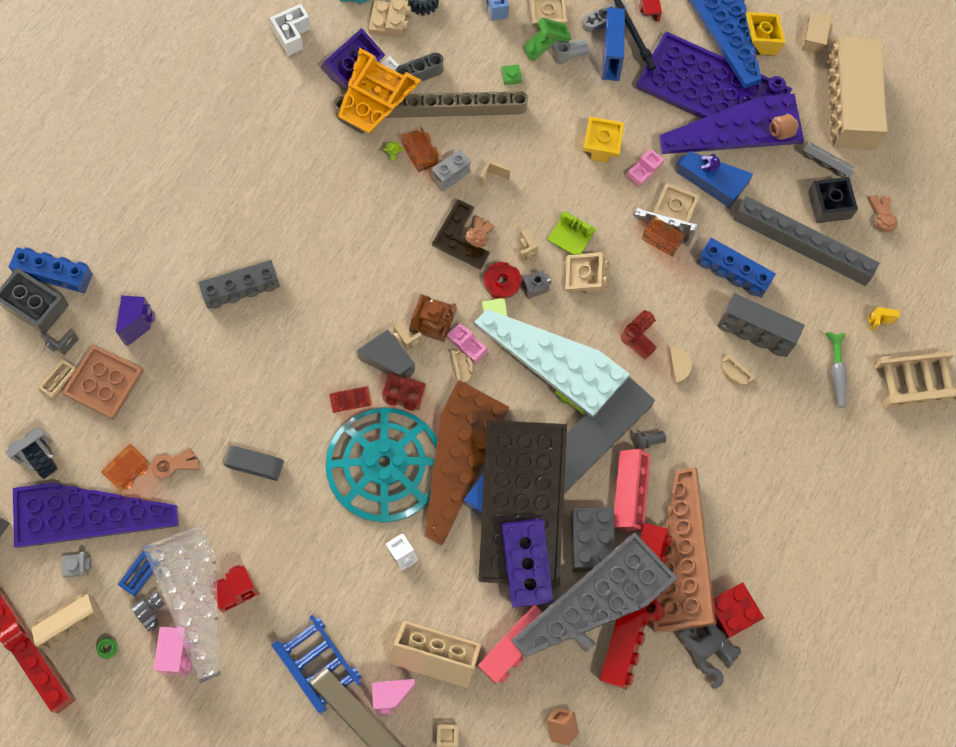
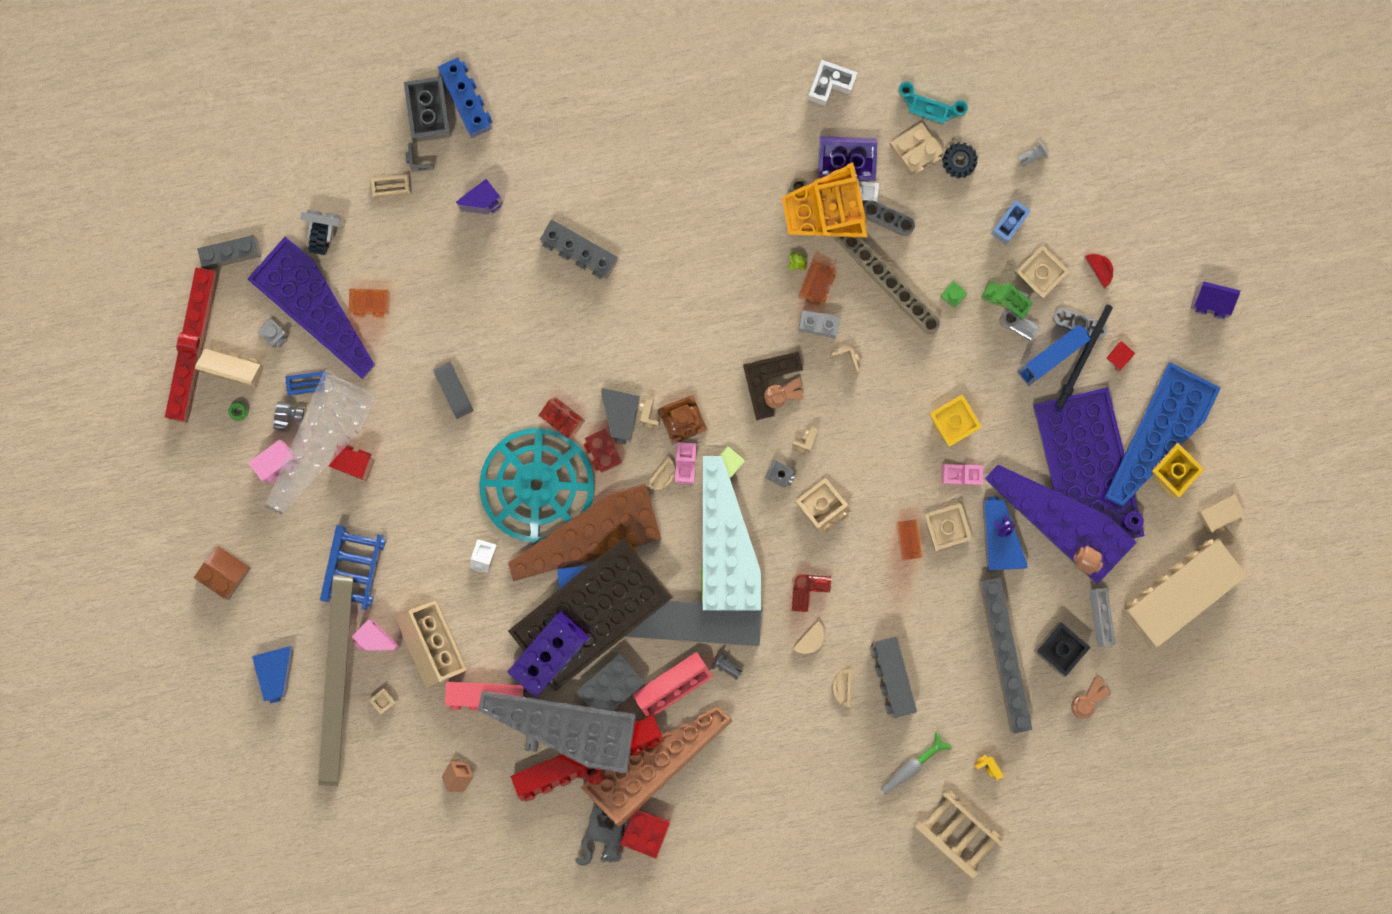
camera: 50 degrees right, 15 degrees up
(102, 381) = (416, 221): nougat plate -> none
(165, 465) = (396, 328): nougat piece -> none
(508, 272) = (771, 443): red plate -> none
(571, 234) = (849, 465): lime hinge -> none
(686, 227) = (924, 534): light grey wing -> none
(736, 267) = (932, 618): blue brick -> none

